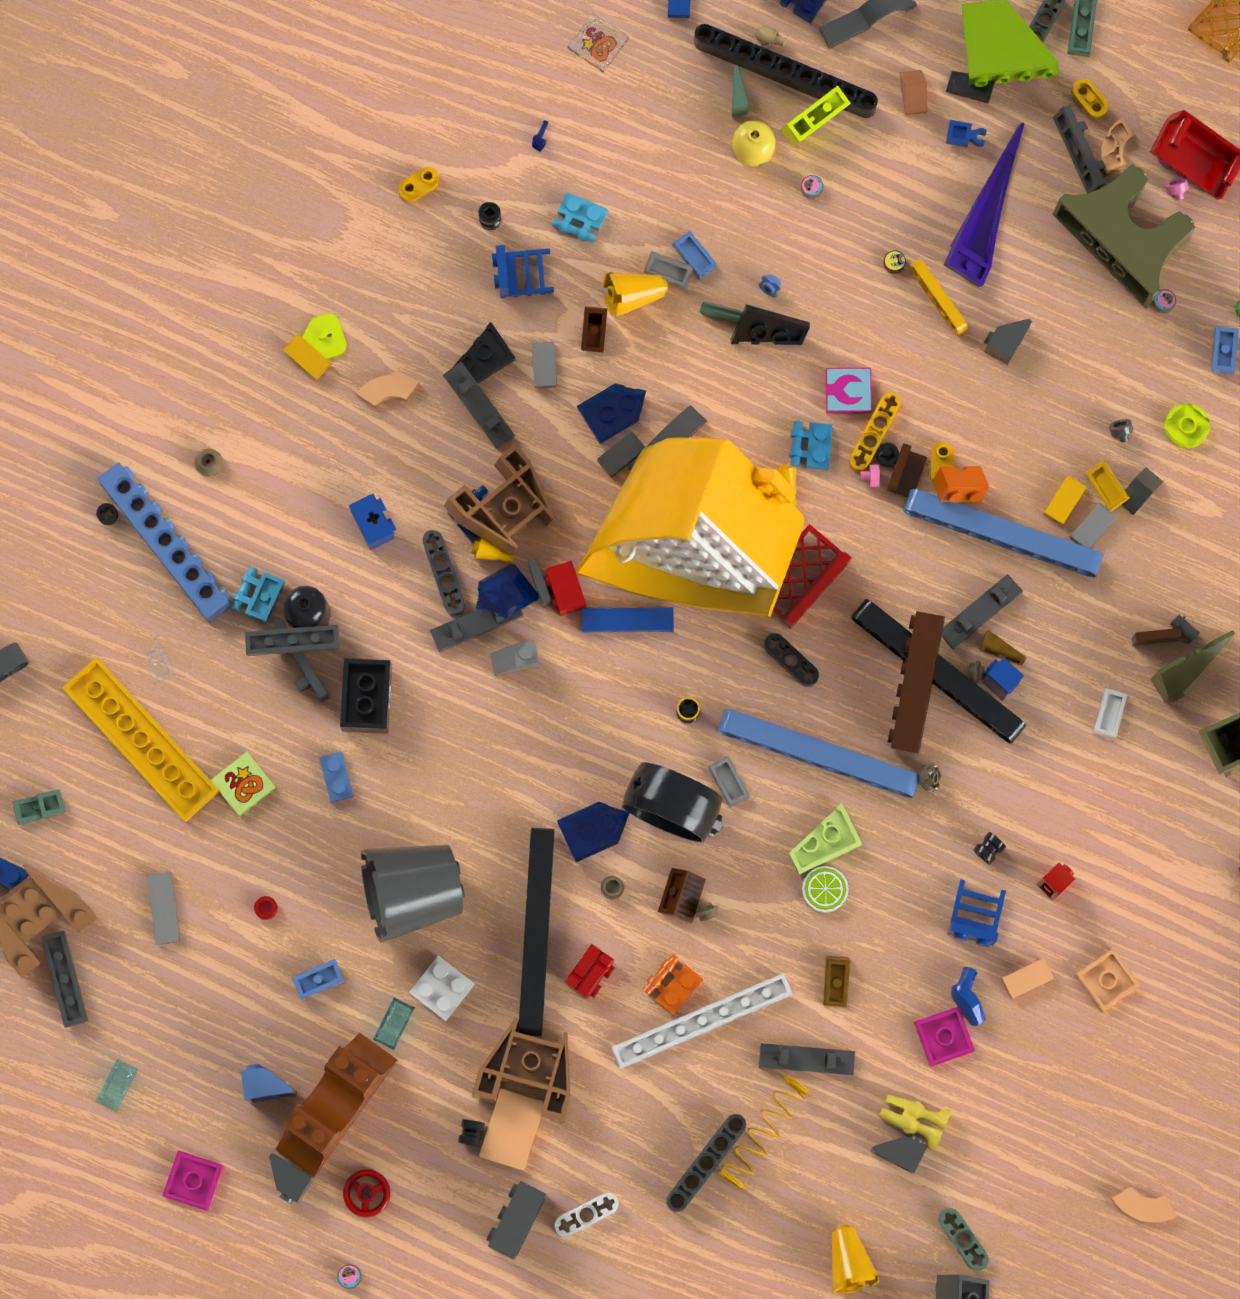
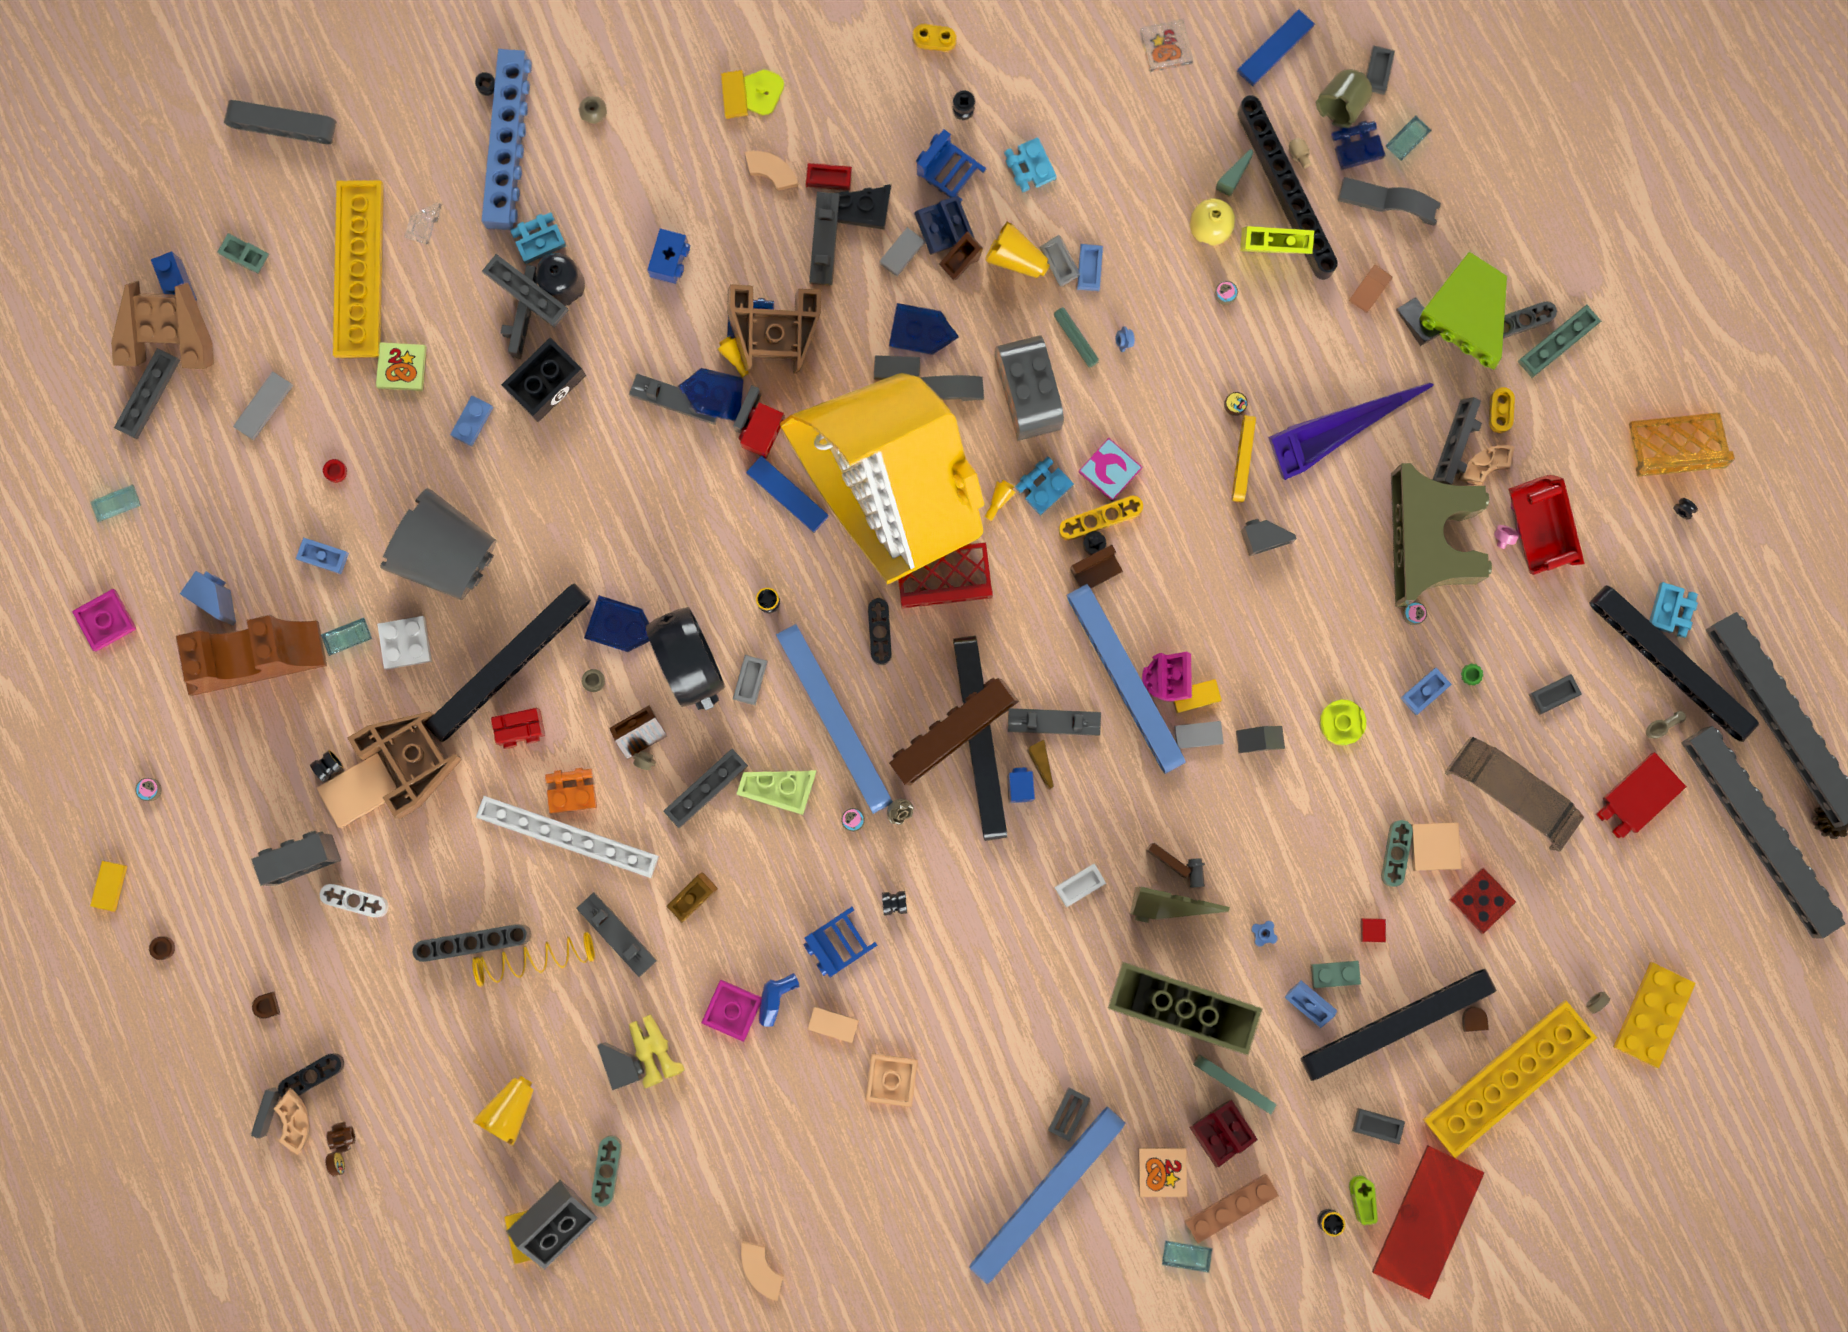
camera: 40 degrees right, 5 degrees up
(289, 1179) = (168, 680): dark grey slope -> none
(364, 1211) = (207, 737): red piece -> none
(436, 357) = (828, 176): none -> red tile
(445, 572) = (683, 339): dark grey beam -> none
(515, 658) = (679, 450): light grey slope -> none
(537, 141) = (1052, 79): clear blue hand -> none
(558, 317) = (943, 224): none -> dark blue slope
(736, 380) = (1030, 387): none -> dark grey brick
(762, 325) = (1089, 363): black wing -> none
(772, 890) = (705, 788): none -> dark grey plate
(825, 889) = (746, 822): lime tile -> none
(872, 475) = (1067, 548): bright pink tile -> none
(901, 815) = (853, 819): none -> tile
(938, 460) = (1129, 586): yellow plate -> none
(960, 485) = (1125, 614): orange brick -> none
(961, 134) = (1377, 351): blue plate -> none
(976, 672) = (1007, 763): dark tan plate -> none
(1034, 502) = (1169, 676): none -> dark pink slope
(1056, 880) = (921, 973): red slope -> none
(1107, 485) = (1238, 713): yellow tile -> none
(1121, 429) = (1289, 680): dark grey tile -> none

